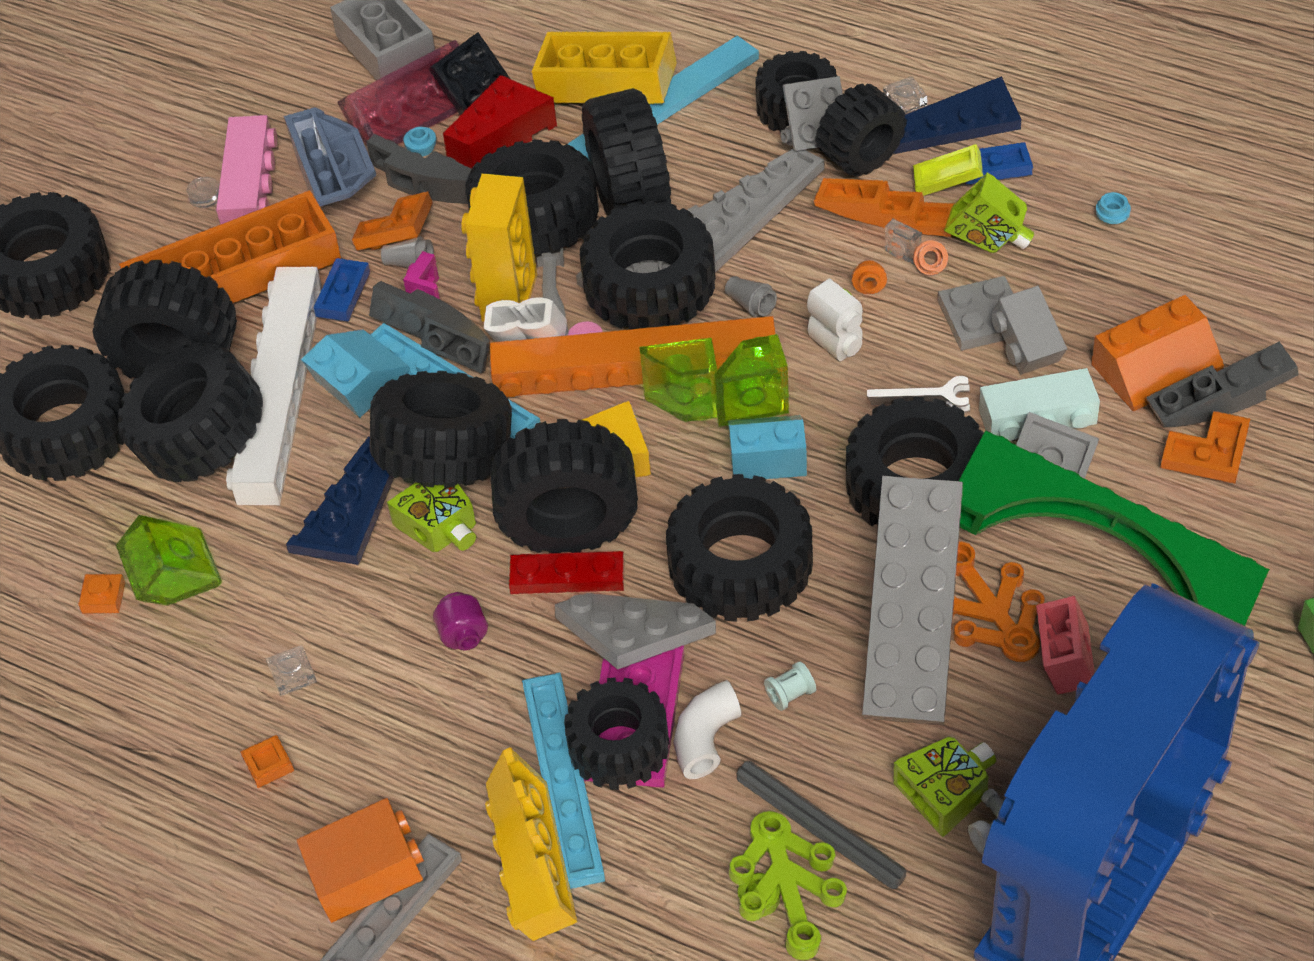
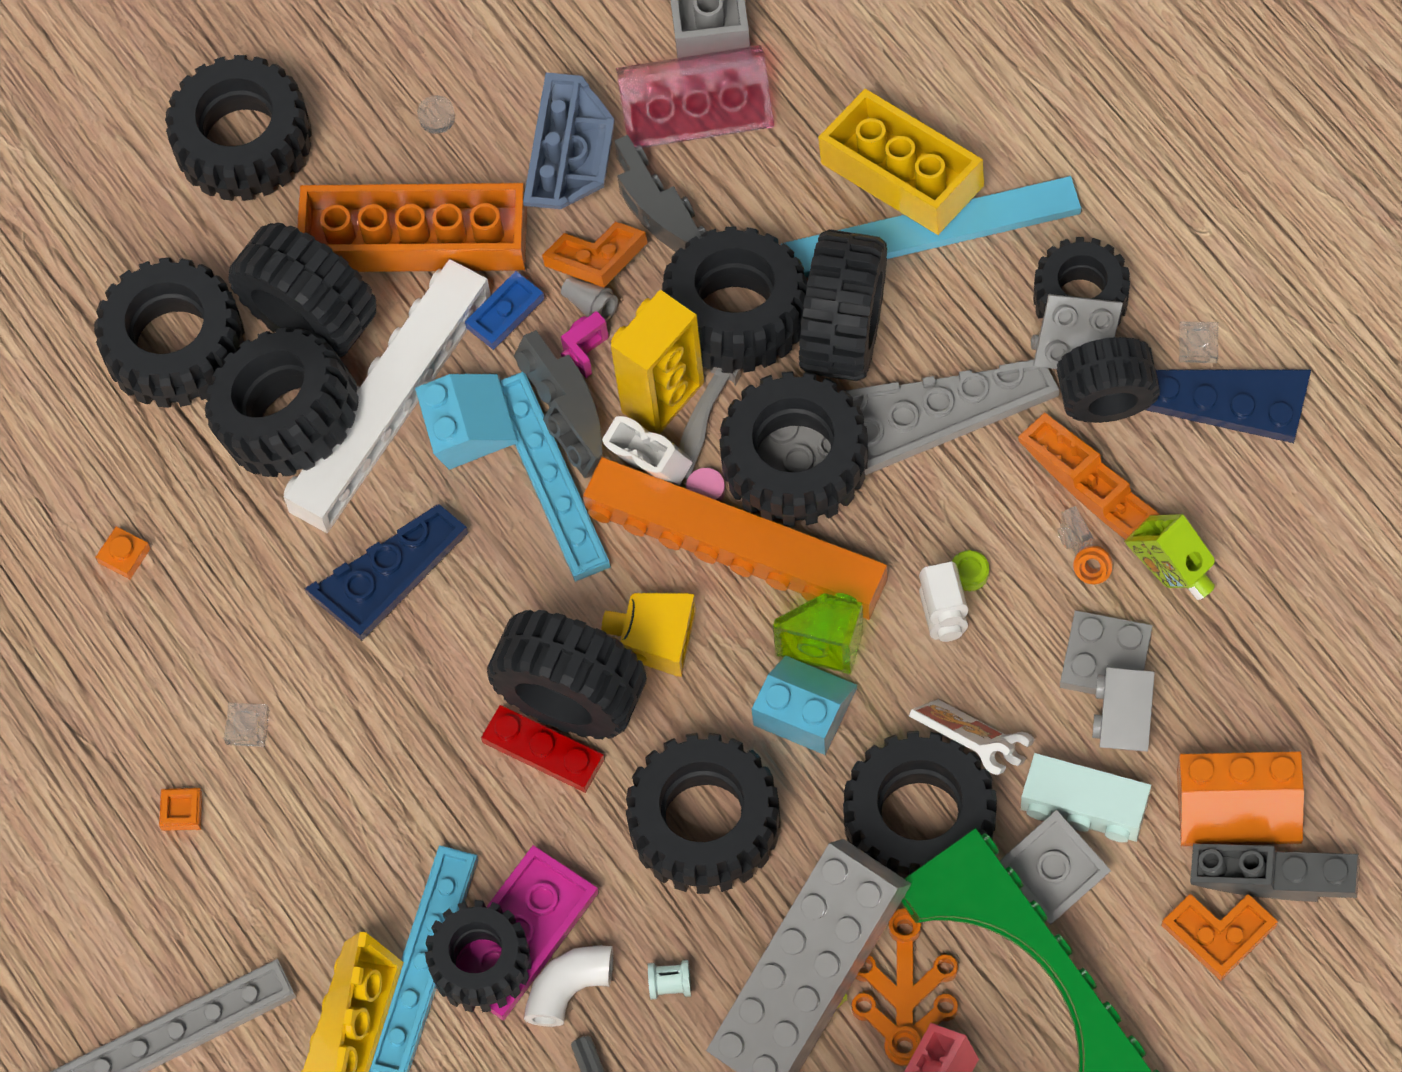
camera: 30 degrees right, 15 degrees up
(166, 561) = (193, 551): clear neon green slope -> none
(246, 167) = (484, 115): bright pink brick -> none
(361, 859) = (203, 958): orange brick -> none
(420, 140) = (679, 163): medium azure plate -> none
(434, 516) = (457, 622): lime torso -> none
(438, 428) = (484, 577): black tyre -> none
(460, 620) = (416, 754): magenta head -> none
(467, 72) = (764, 103): black tile -> none
(498, 118) = (759, 175): red wedge -> none
(633, 628) = (563, 844): light grey plate -> none
(681, 378) = (758, 593): clear neon green slope -> none
(752, 295) = (890, 521): light grey cone -> none
(865, 270) = (1017, 558): orange plate -> none
(948, 170) = (1175, 467): neon yellow tile -> none
(1005, 161) = (1232, 480): blue plate -> none
(1113, 208) = (1316, 588): medium azure plate -> none

